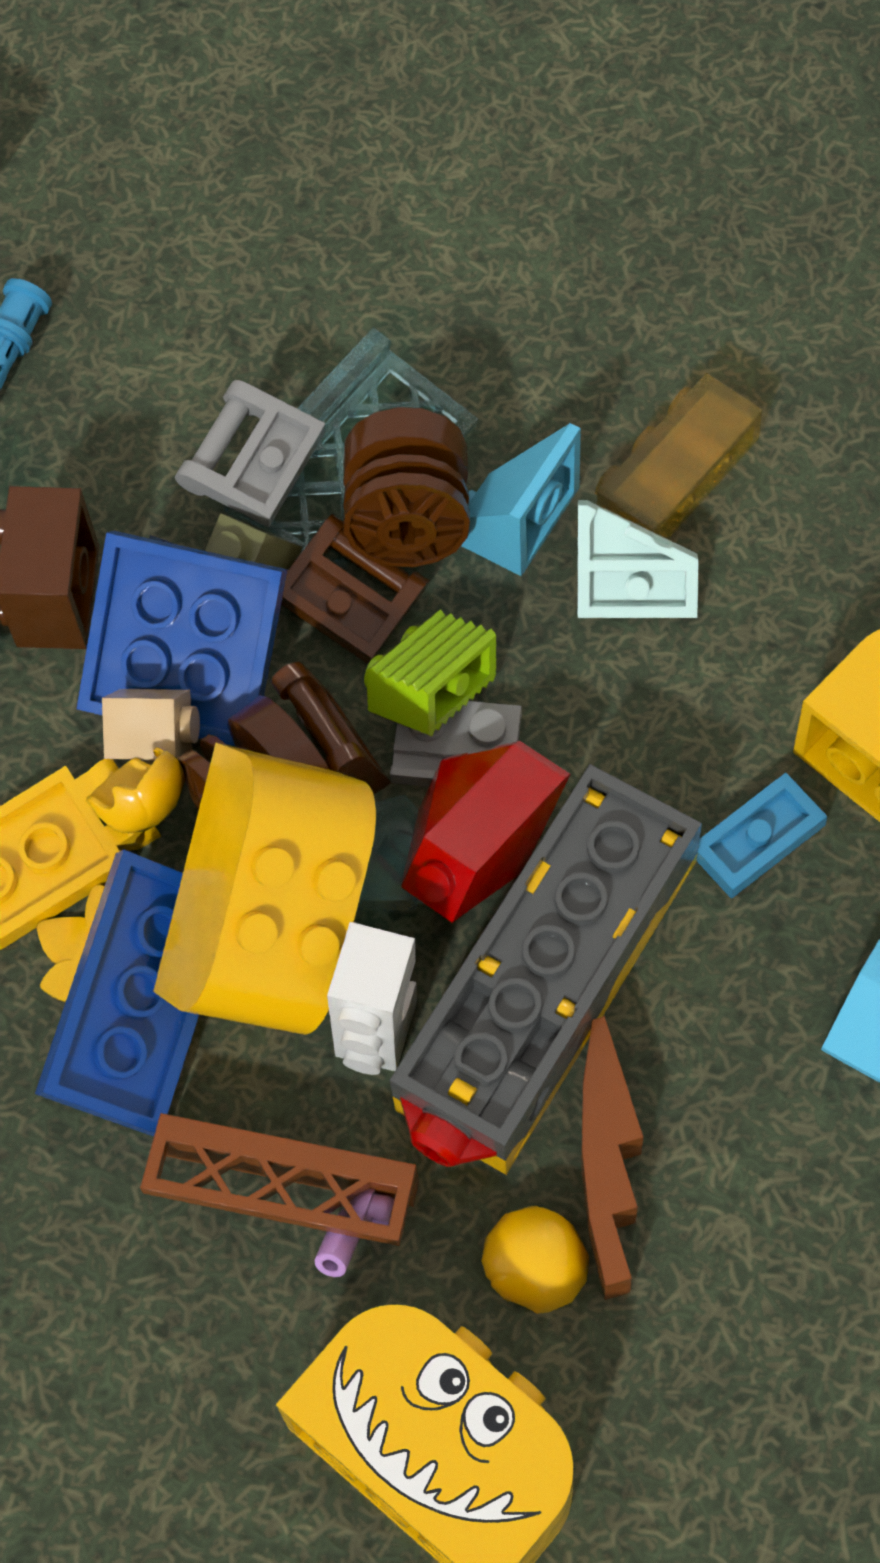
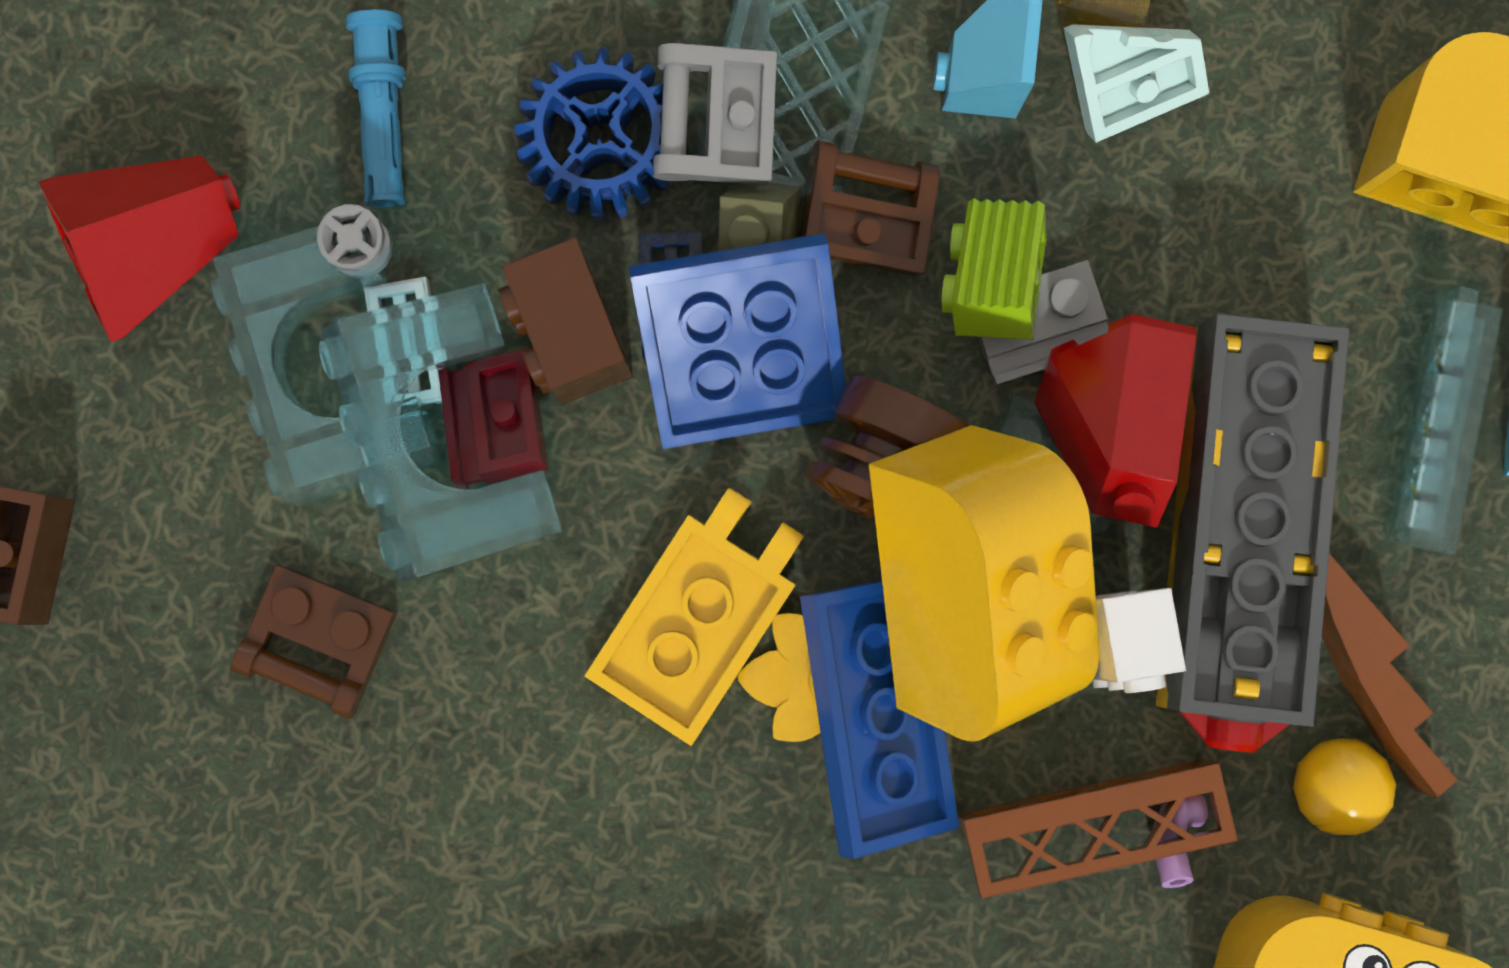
camera: 30 degrees left, 20 degrees up
(137, 470) = (561, 100): none -> blue gear
(139, 793) = (786, 523): yellow hair -> none
(147, 719) = (754, 446): tan brick -> none
(328, 725) = (931, 371): reddish brown plate -> none
(406, 487) = (891, 87): reddish brown wheel -> none
(759, 835) = (1371, 290): dark azure plate -> none
(778, 975) = (1444, 423): none -> clear light blue fence

